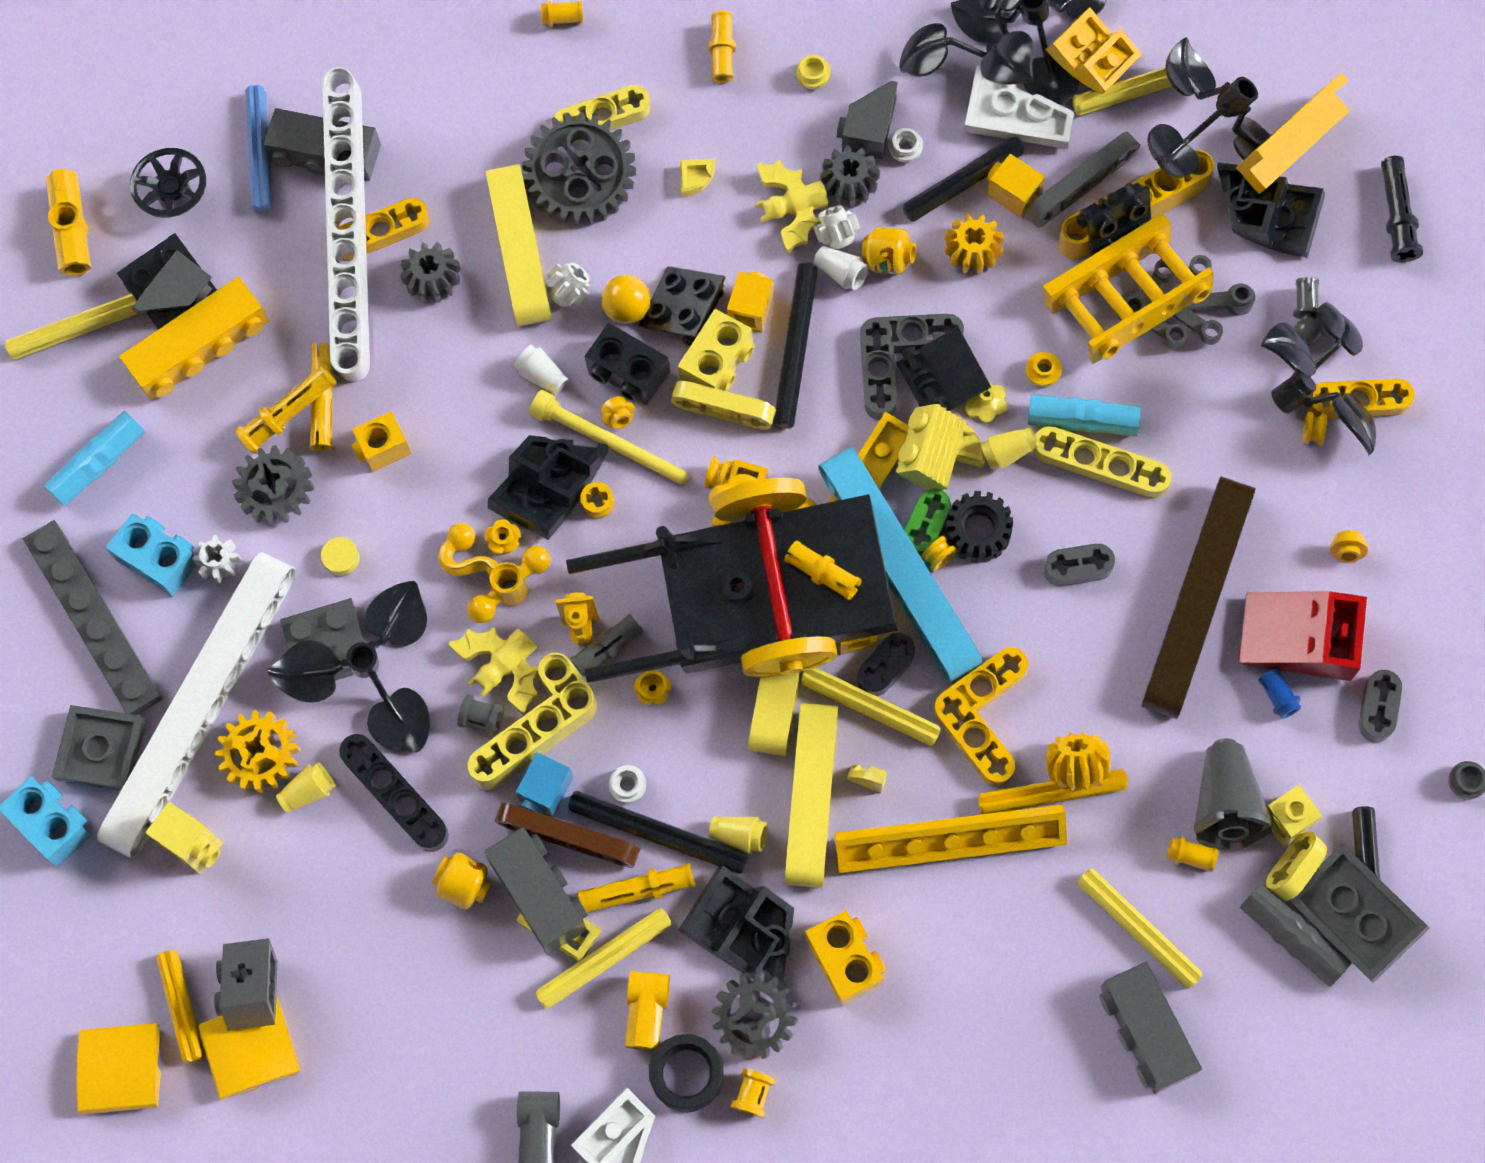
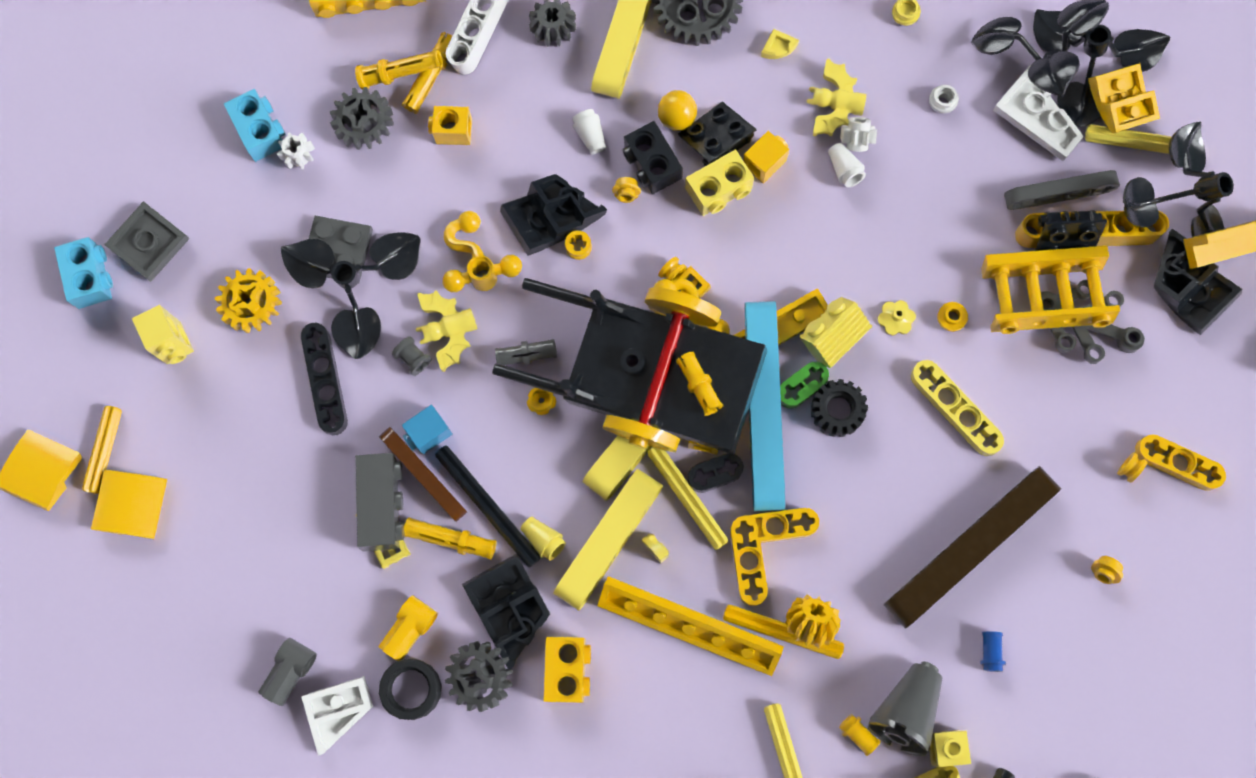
camera: 30 degrees right, 5 degrees up
(92, 619) = (193, 149): dark grey plate -> none
(94, 458) = (254, 37): medium azure axle -> none
(196, 704) = (229, 243): white beam -> none
(247, 984) = (148, 460): dark grey brick -> none
(307, 787) = (267, 343): light yellow cone -> none
(340, 556) = (380, 192): light yellow tile -> none
(461, 880) = (332, 466): yellow head -> none
(506, 545) = (498, 244): yellow plate -> none
(527, 727) = (439, 382): light yellow beam -> none
(547, 408) = (579, 160): light yellow piece -> none
(568, 284) = (642, 78): white gear -> none
(578, 613) = (514, 322): yellow hinge -> none
(603, 958) = (400, 575): light yellow axle -> none
(624, 773) = (481, 451): white plate -> none
(723, 405) = (704, 222): light yellow beam -> none
(753, 1093) = (447, 730): yellow bush -> none
(795, 345) = (781, 206): black axle -> none
(852, 165) = (882, 93): dark grey gear -> none
(869, 121) = (926, 68): dark grey slope -> none
(888, 250) = (886, 170): yellow head -> none
(894, 342) = (854, 241): dark grey beam -> none
(939, 553) = (798, 412): yellow bush -> none
(943, 371) = (877, 281): black hinge -> none
(960, 180) = (972, 145): black axle -> none
(964, 242) = (957, 189): yellow gear -> none
(970, 449) = (866, 347): light yellow tile -> none
(1008, 447) = (893, 361): light yellow cone -> none
(1014, 184) = (1008, 168): yellow brick -> none
(1080, 572) = (899, 468): dark grey beam -> none
(1084, 415) = (963, 366): medium azure axle -> none
(1299, 388) = (1147, 402): black plant -> none
(1304, 632) = (1036, 617): slope -> none
(1308, 310) = (1169, 390): dark grey pin -> none
(1371, 704) = (1070, 706): dark grey beam -> none

